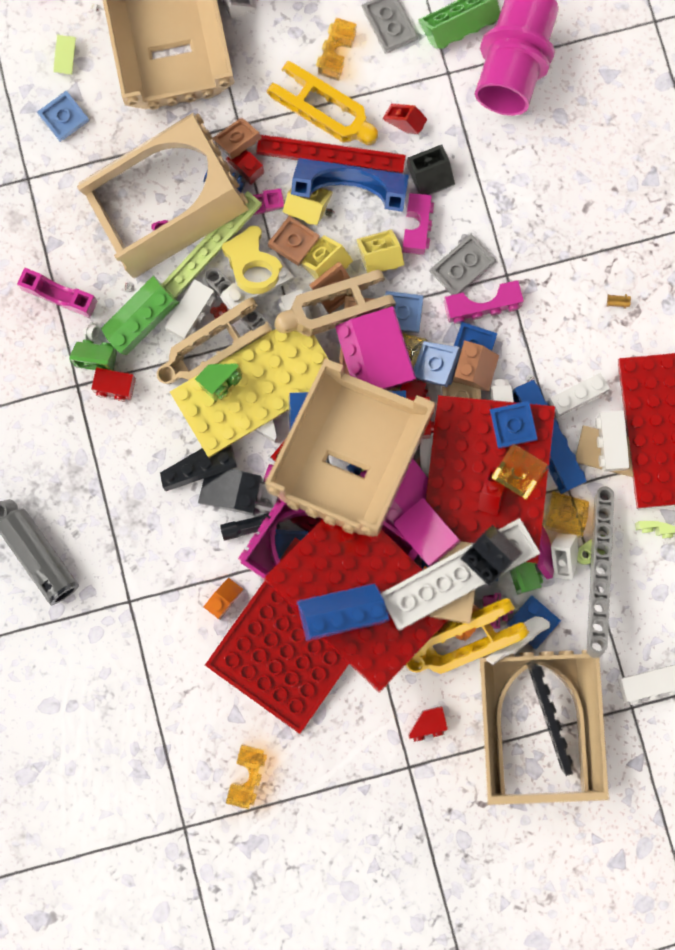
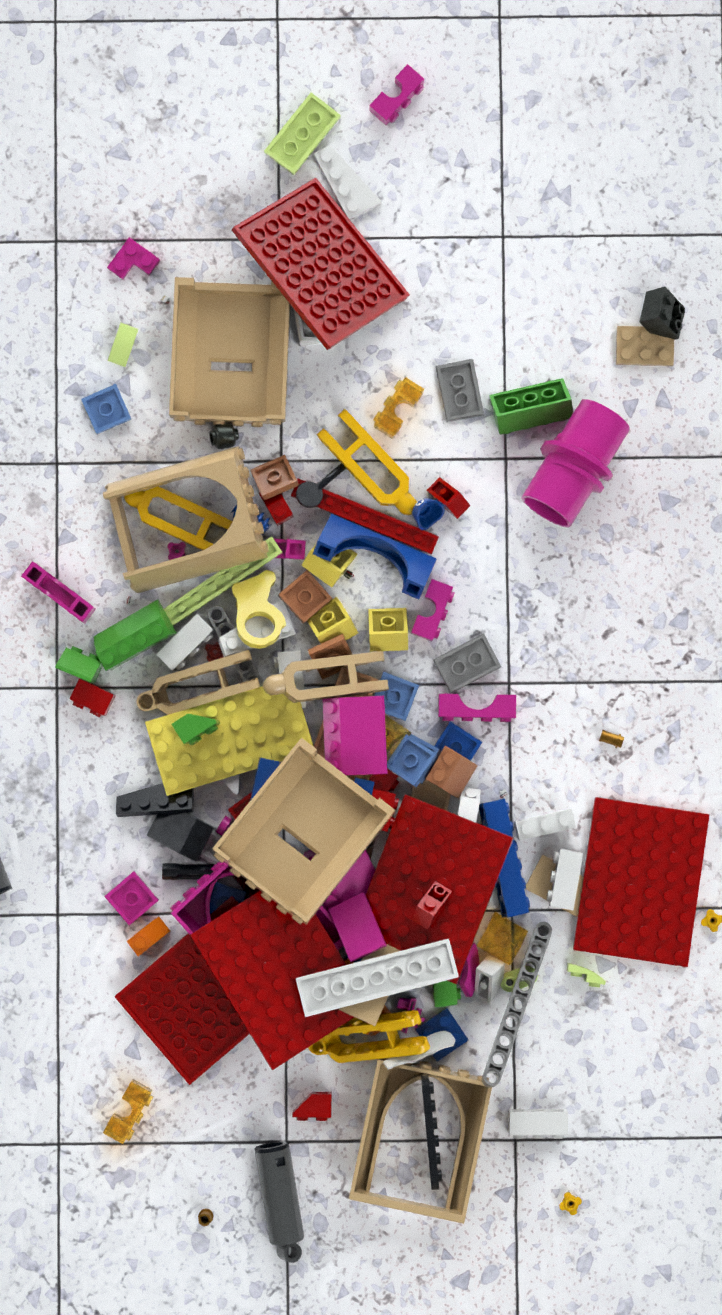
camera: 15 degrees right, 5 degrees up
(91, 331) = (82, 638): white plate -> none
(115, 189) = (142, 500): none -> yellow piece
(177, 111) = (223, 436): none -> pearl dark grey head
(198, 566) = (131, 898): none -> dark pink plate
(275, 144) = (310, 494): none -> black piece
(342, 611) = (255, 986): blue slope -> none
(348, 857) = (205, 1212): none -> pearl gold pin
(389, 134) = (427, 512): none -> blue helmet
(419, 825) = (280, 1198): none -> dark grey piece
(431, 170) = (459, 560): pearl dark grey slope -> none
(491, 555) = (410, 969): black slope -> none
(513, 424) = (467, 846): blue plate -> none
(520, 471) = (460, 895): clear yellow slope -> none

